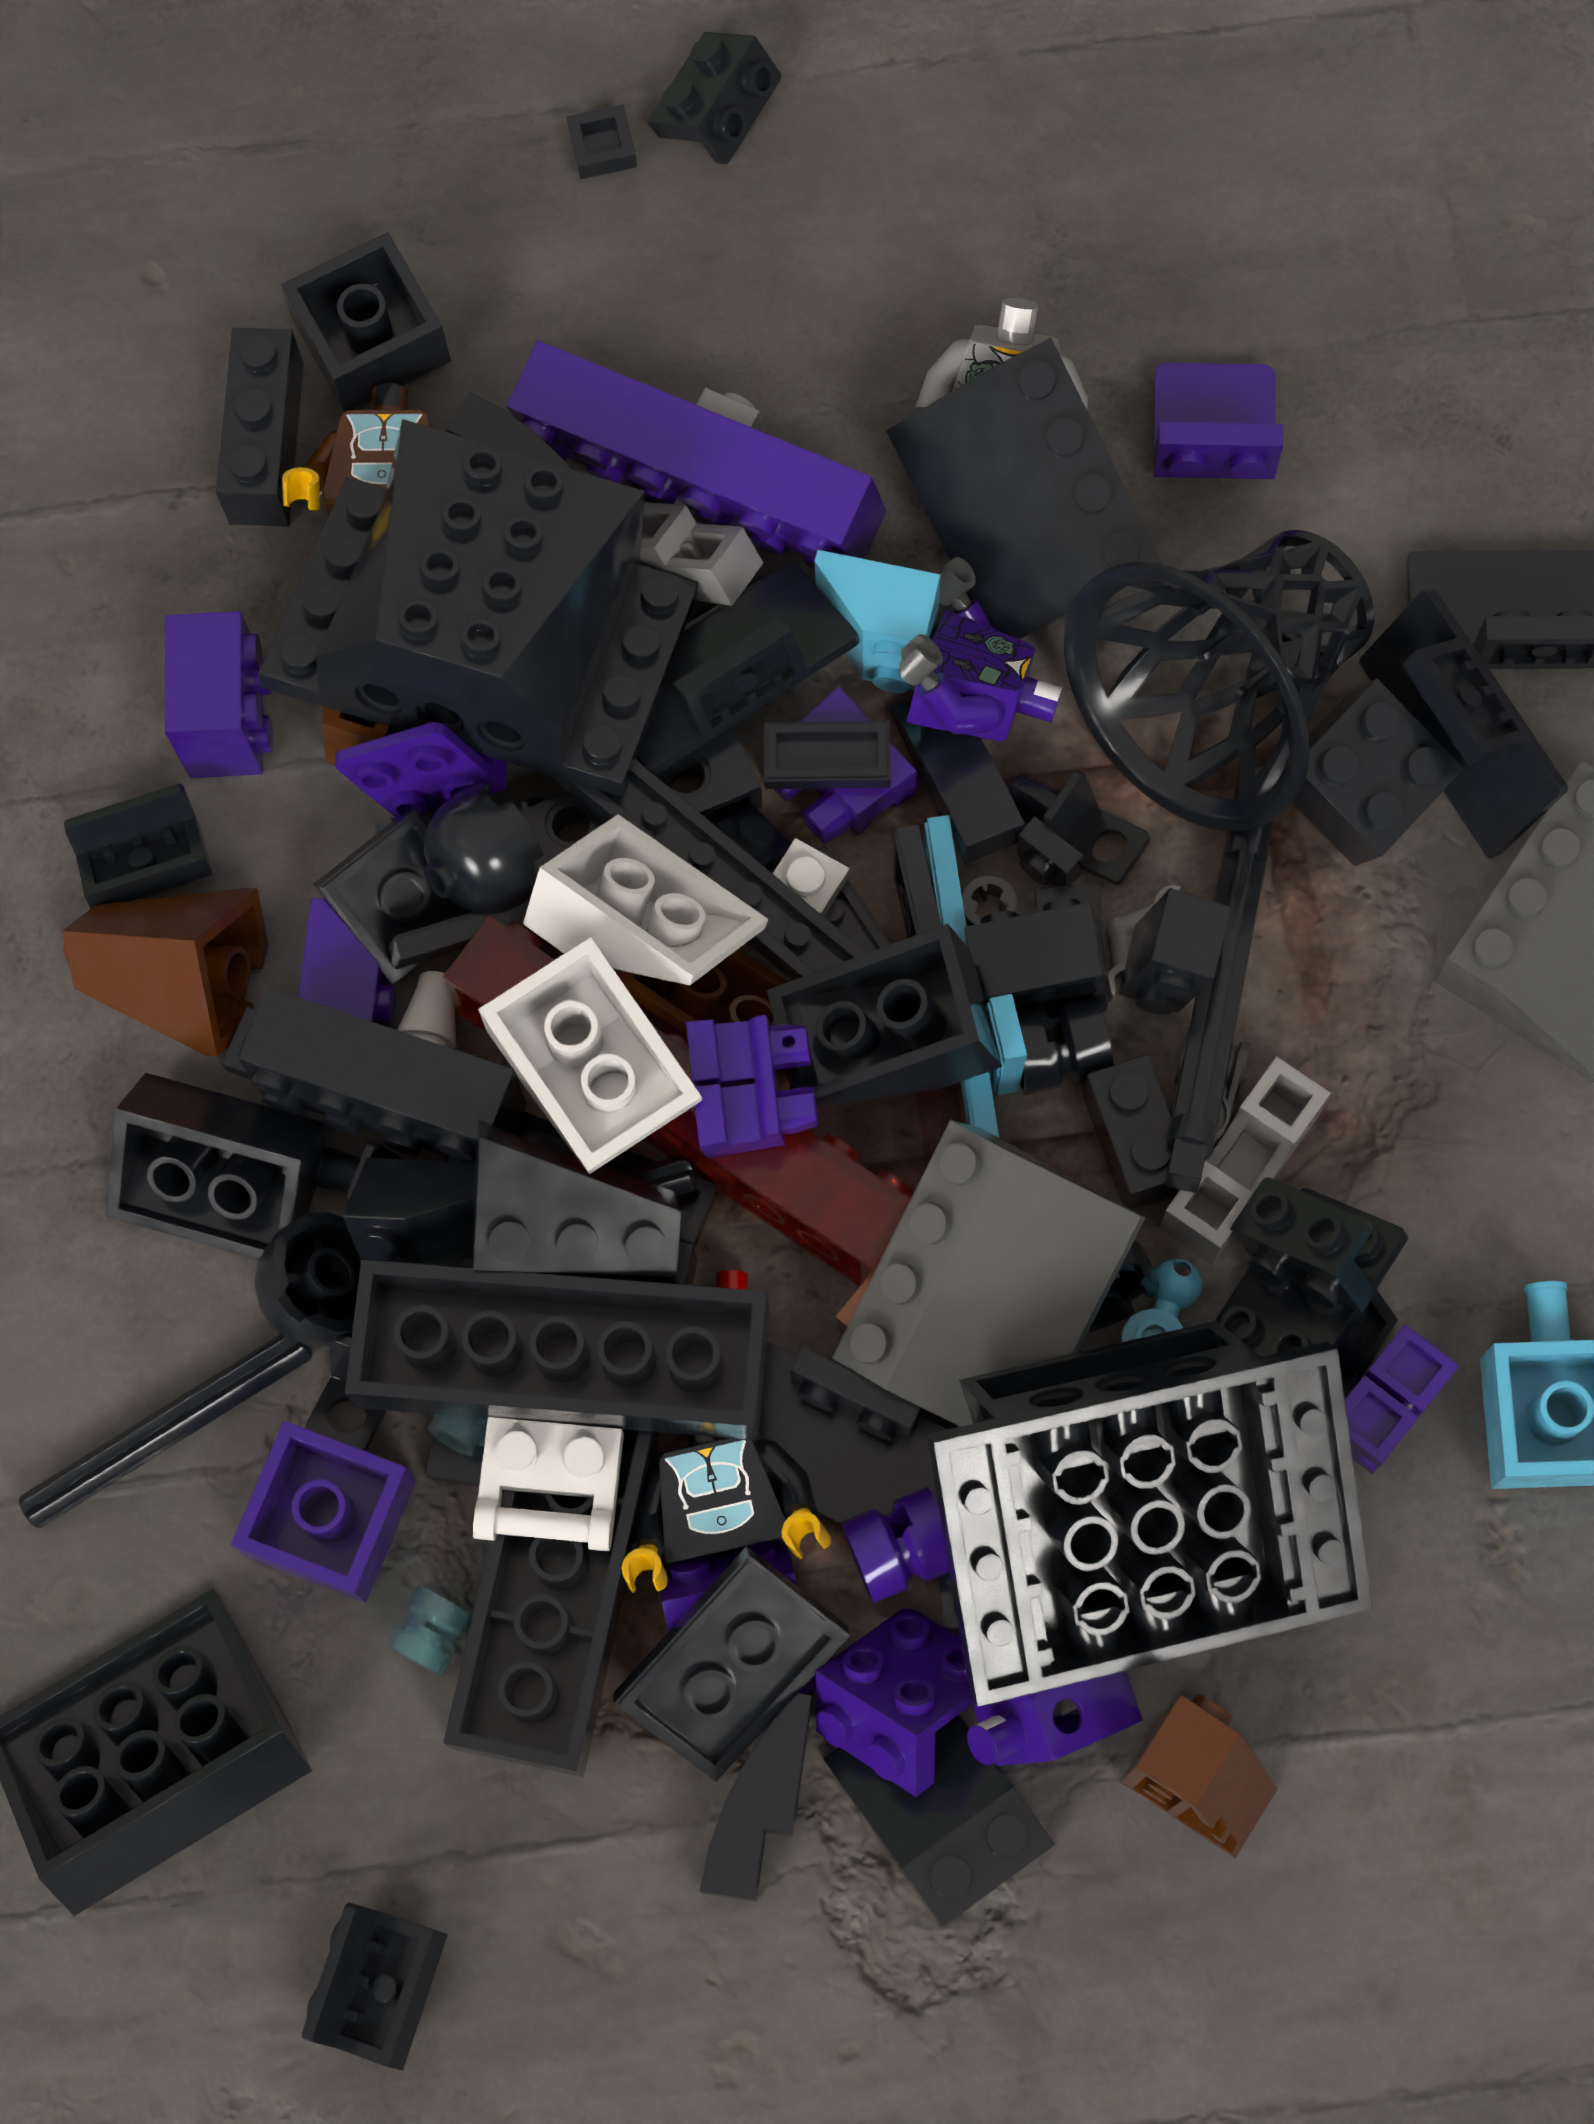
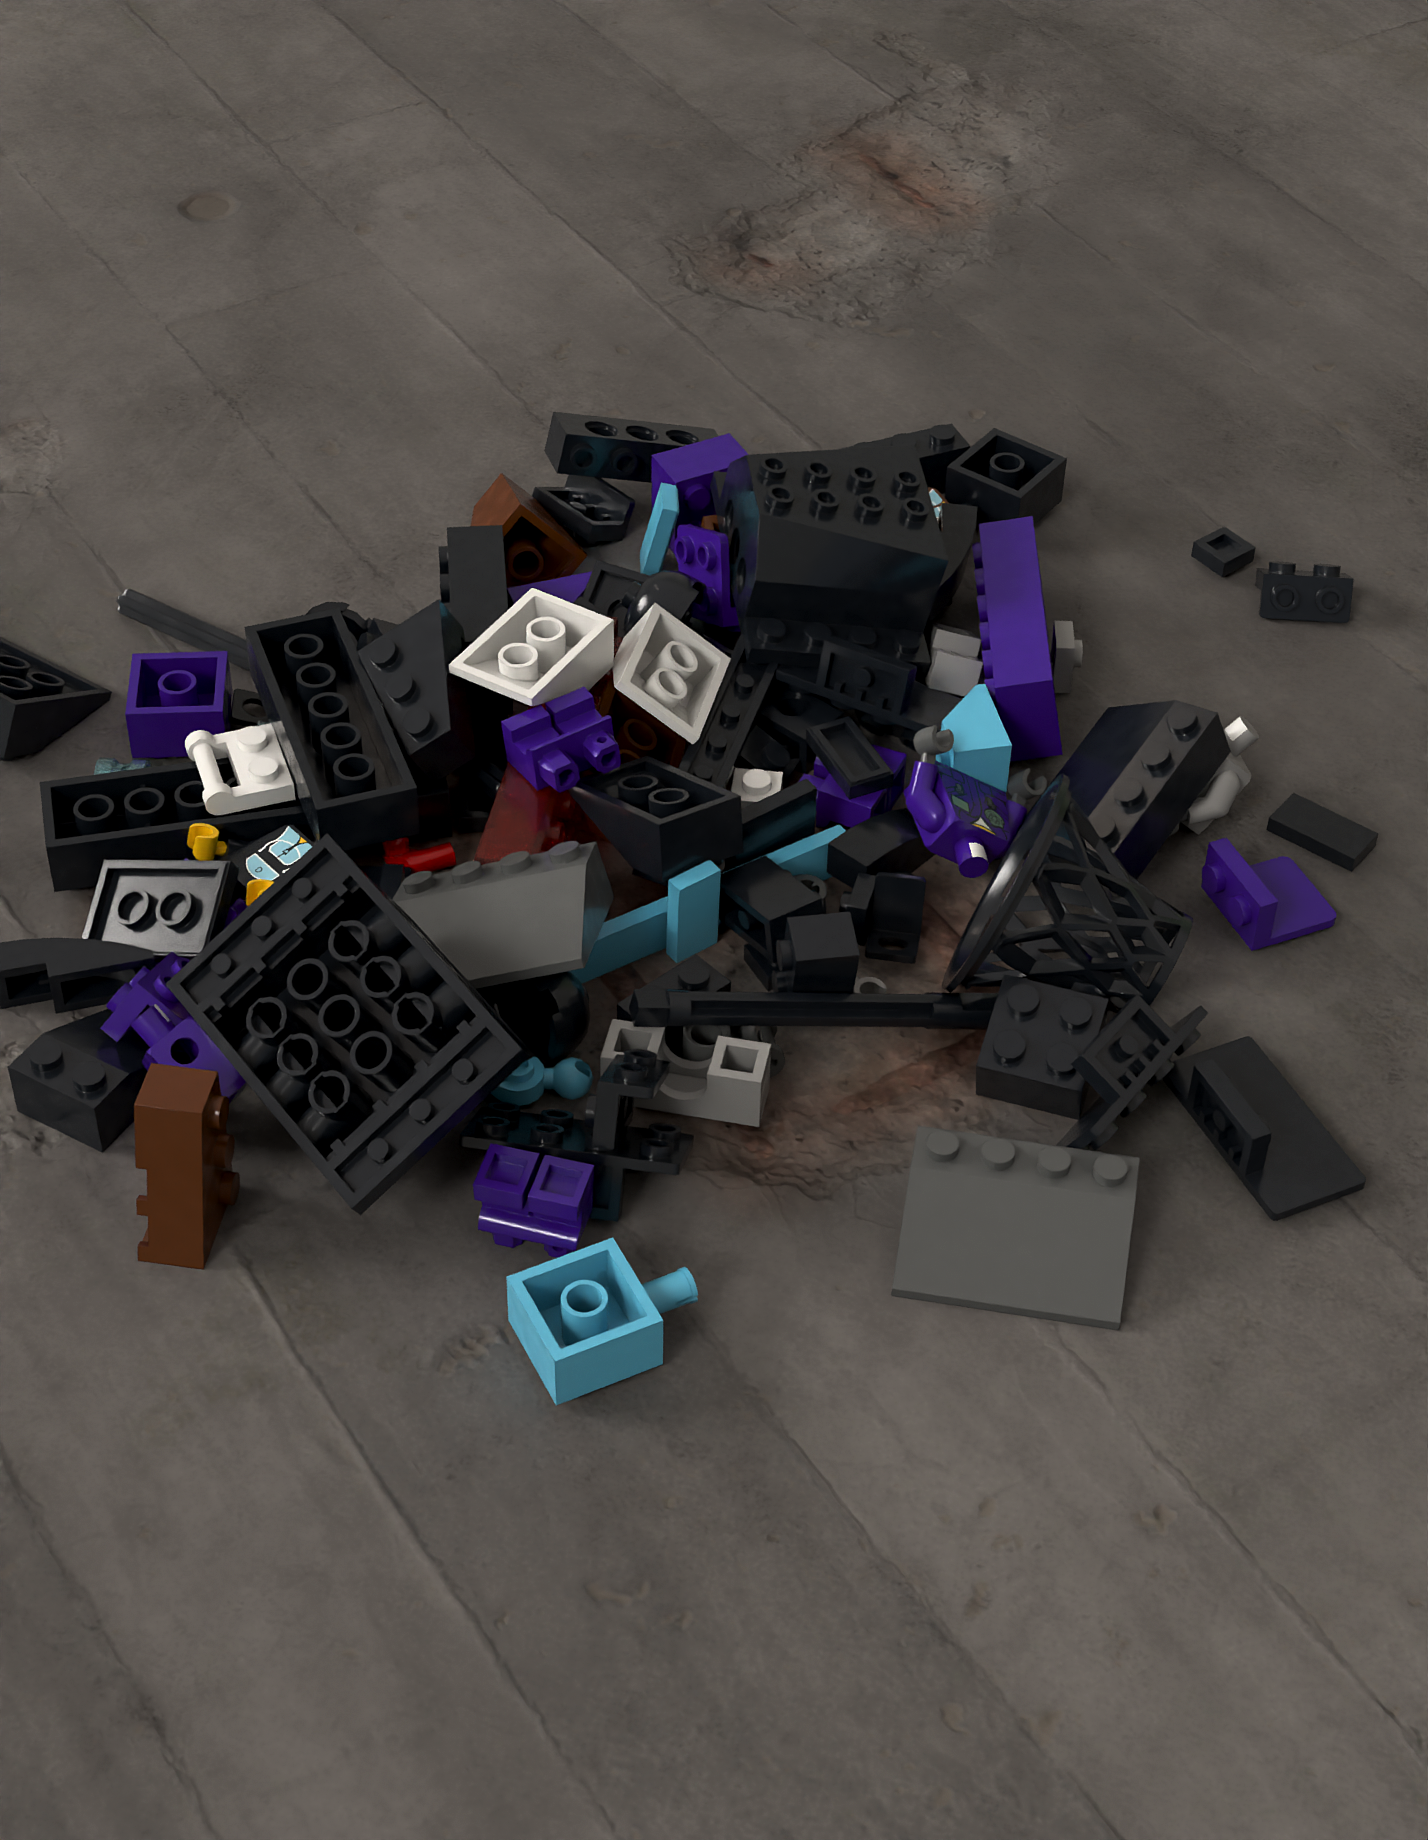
camera: 60 degrees right, 30 degrees down
(83, 740) = (613, 445): none -> black brick
(210, 1165) = (392, 577): black slope -> none
(270, 782) = (659, 529): none -> medium azure tile
(1064, 1044) = (719, 944): black wheel -> none
(1125, 305) = (1322, 832): none -> black tile

